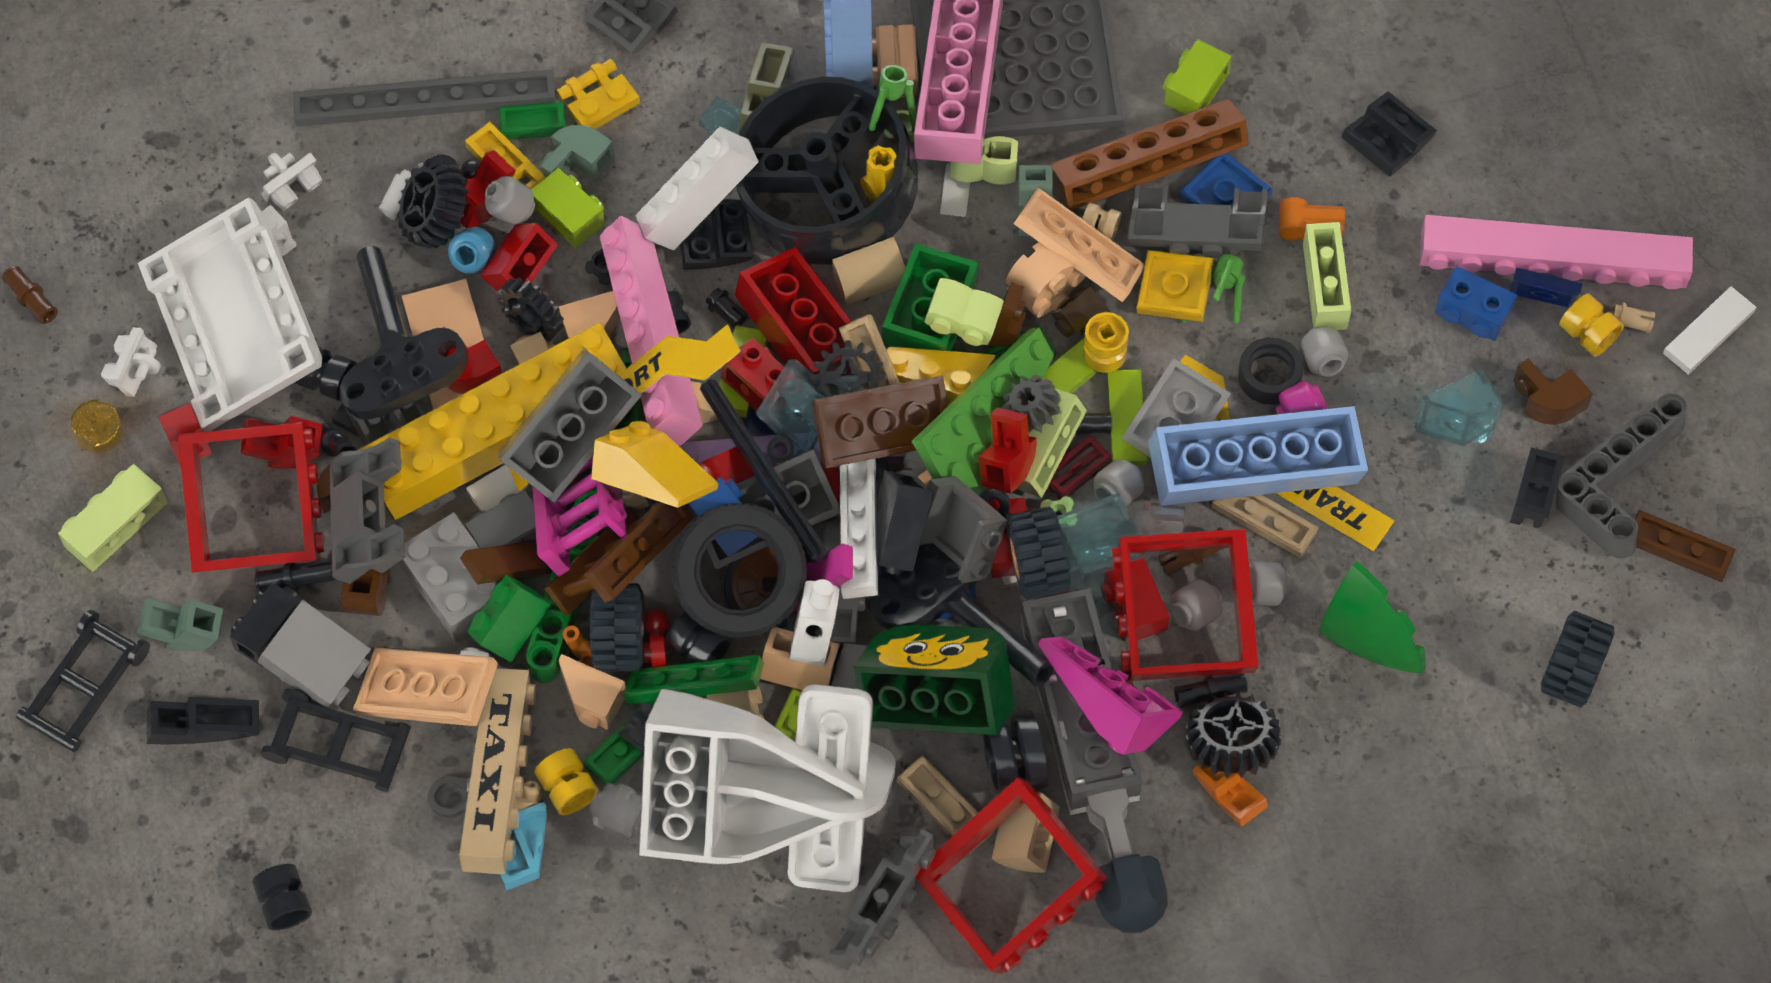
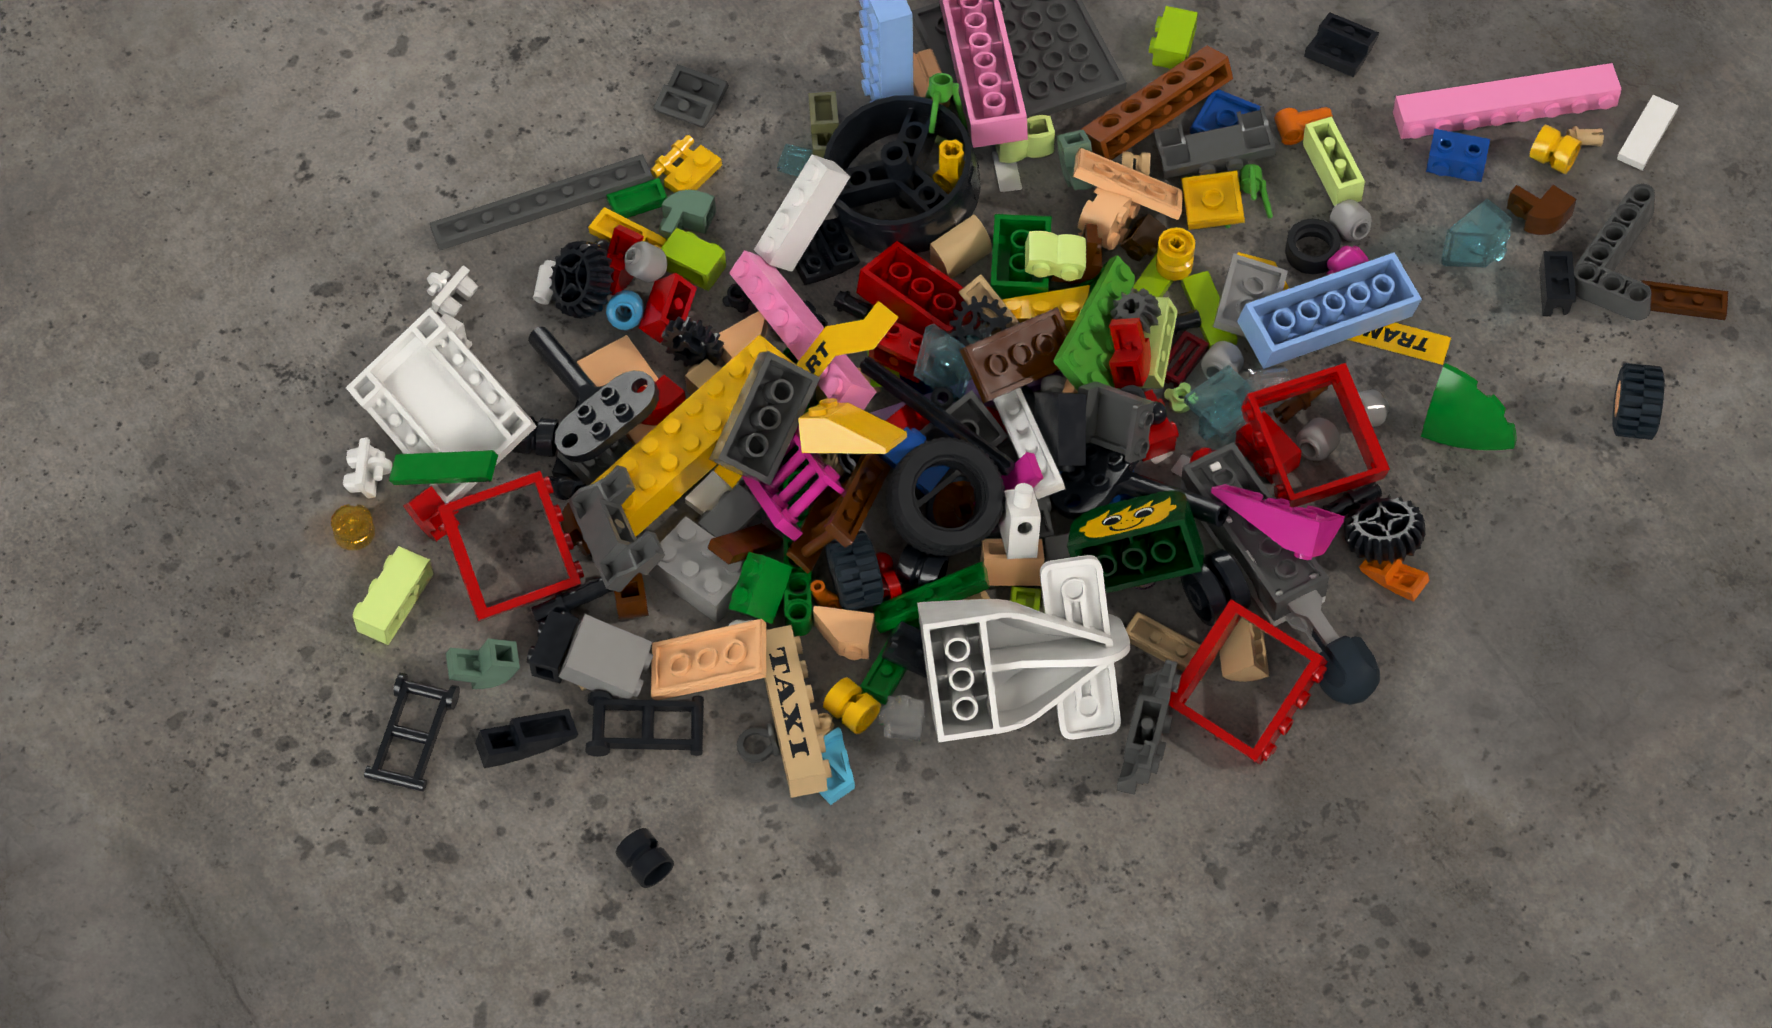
camera: 15 degrees left, 5 degrees down
(29, 294) = (258, 436): reddish brown pin -> none
(209, 386) = (443, 467): none -> green tile
(279, 449) = (519, 505): red brick -> none
(1038, 553) = (1184, 424): black wheel -> none
(1269, 521) = (1360, 362): tan tile -> none
(1545, 288) = (1511, 128): clear blue plate -> none

